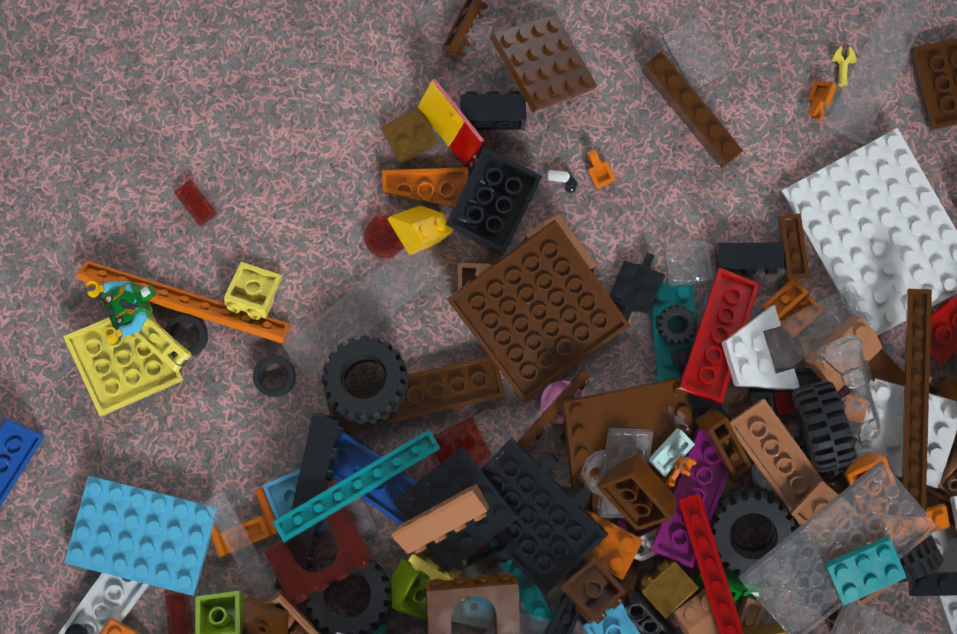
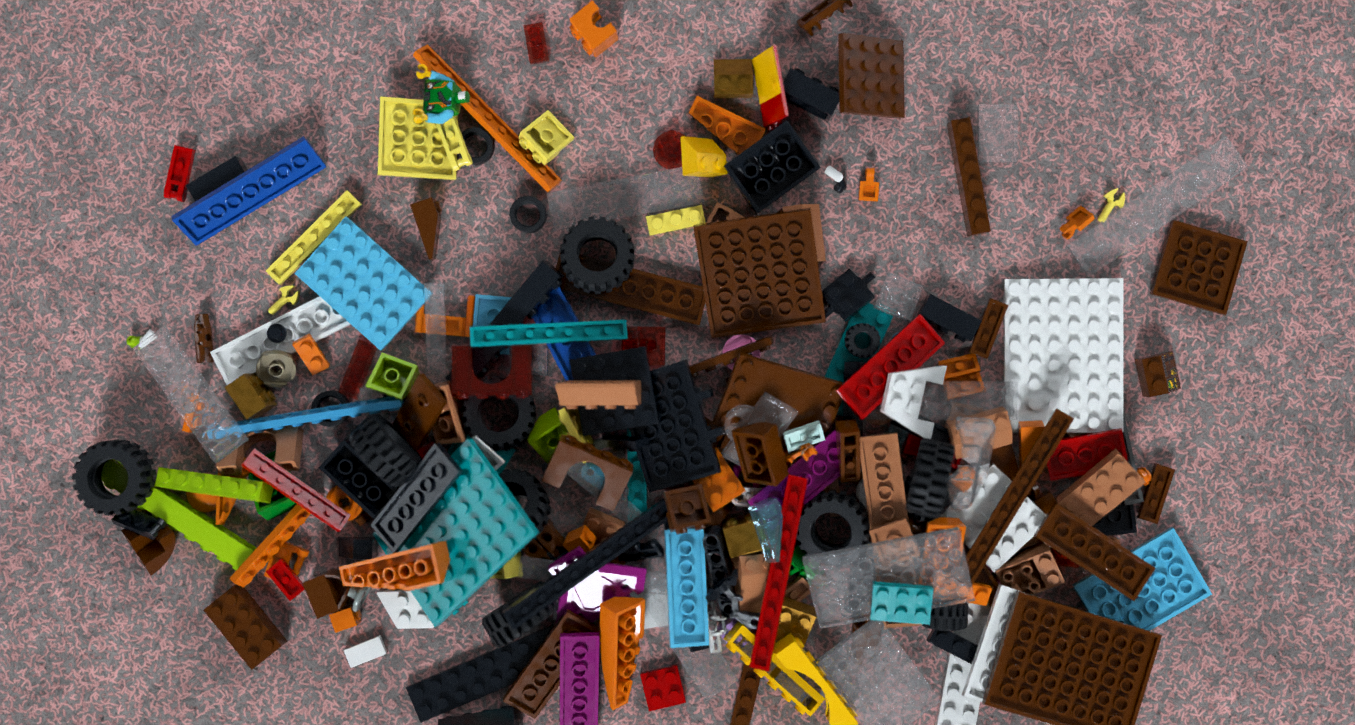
camera: 30 degrees right, 5 degrees up
(65, 516) = (312, 237): none -> light yellow plate
(67, 595) = (284, 299): none -> light yellow bar
(177, 438) = (428, 222): none -> reddish brown slope
(249, 167) = (593, 38): none -> orange piece
(425, 304) = (675, 220): none -> light yellow plate
(687, 564) = (768, 525): none -> clear light blue slope
(894, 333) = (1028, 434): none -> orange slope

